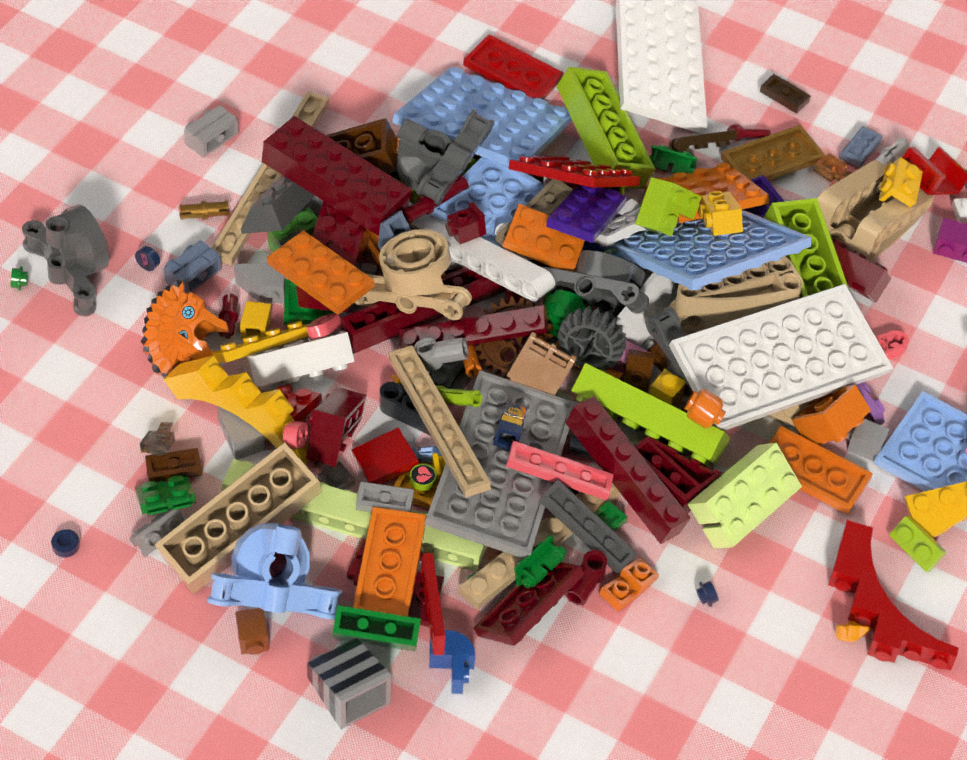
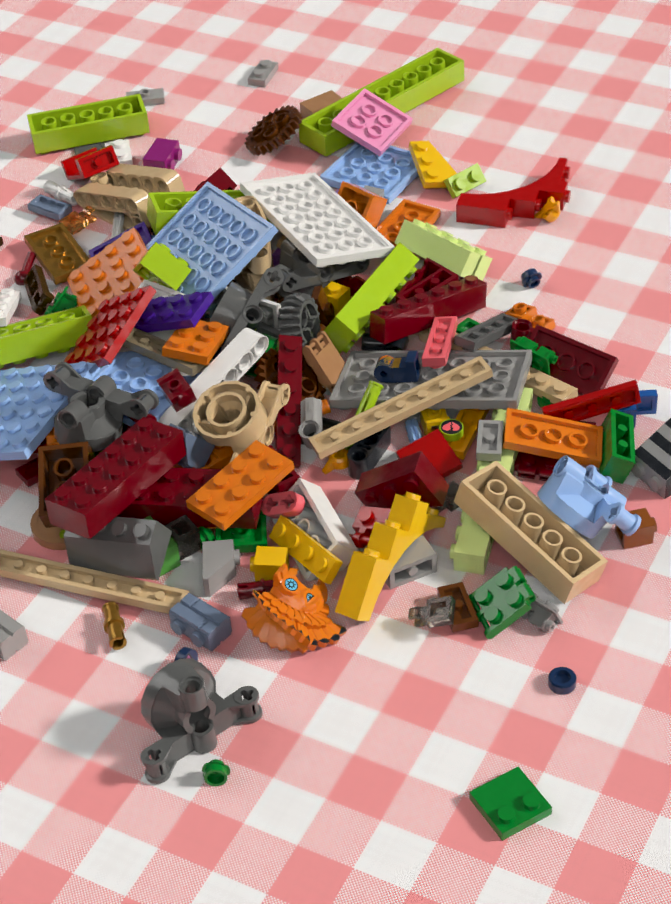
camera: 85 degrees left, 10 degrees down
(296, 434) = (438, 489): coral beam -> none
(705, 408) = (386, 242): orange head -> none
(721, 213) = (171, 233): yellow brick -> none
(901, 181) = (114, 169): yellow bracket -> none

